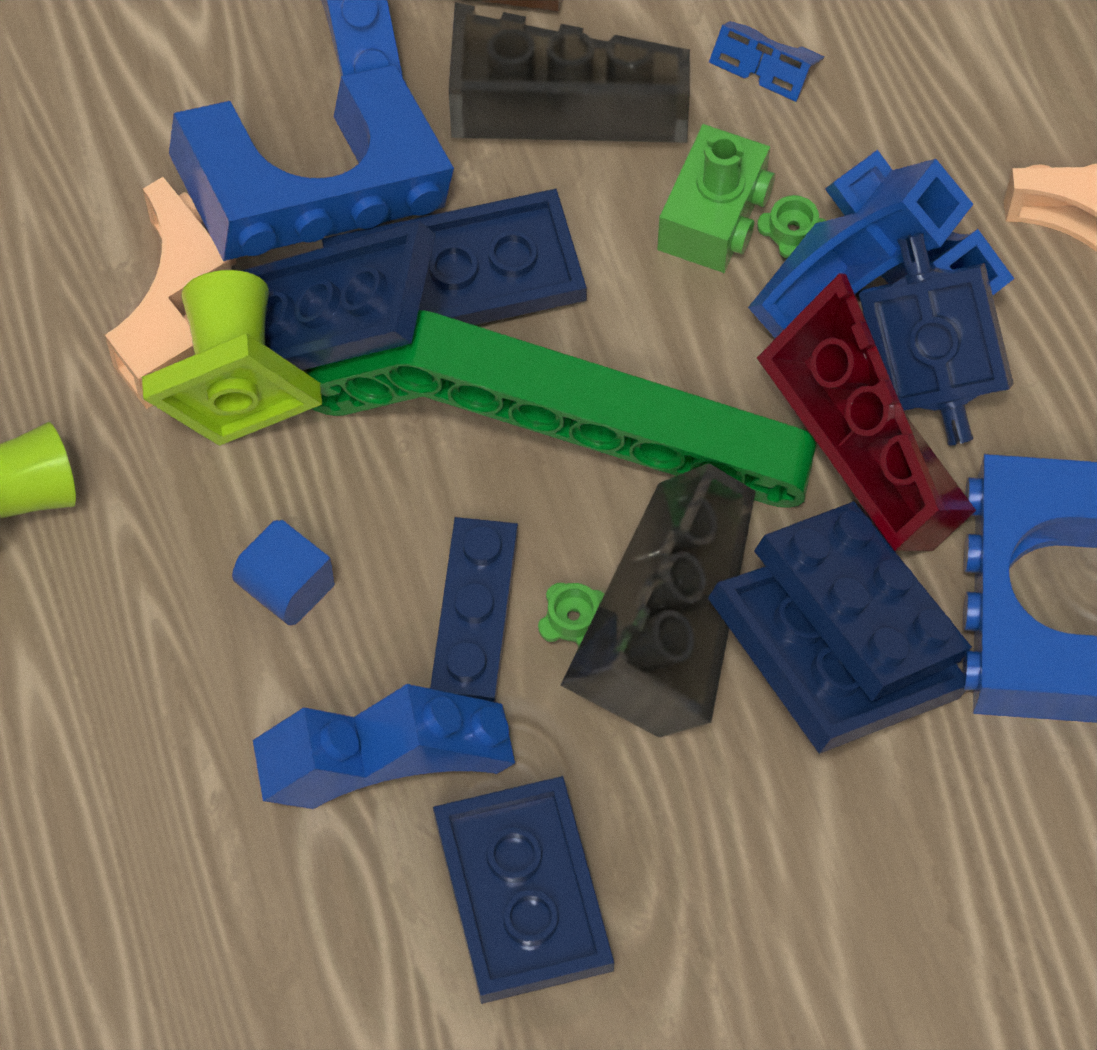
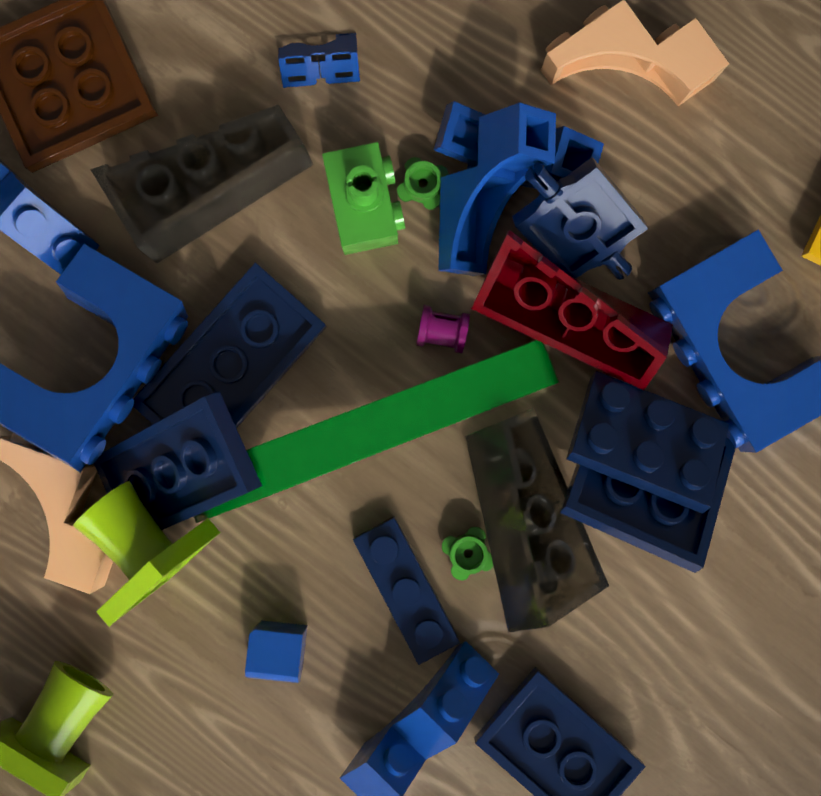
camera: 40 degrees left, 25 degrees up
(711, 369) = (443, 329): none -> magenta bush

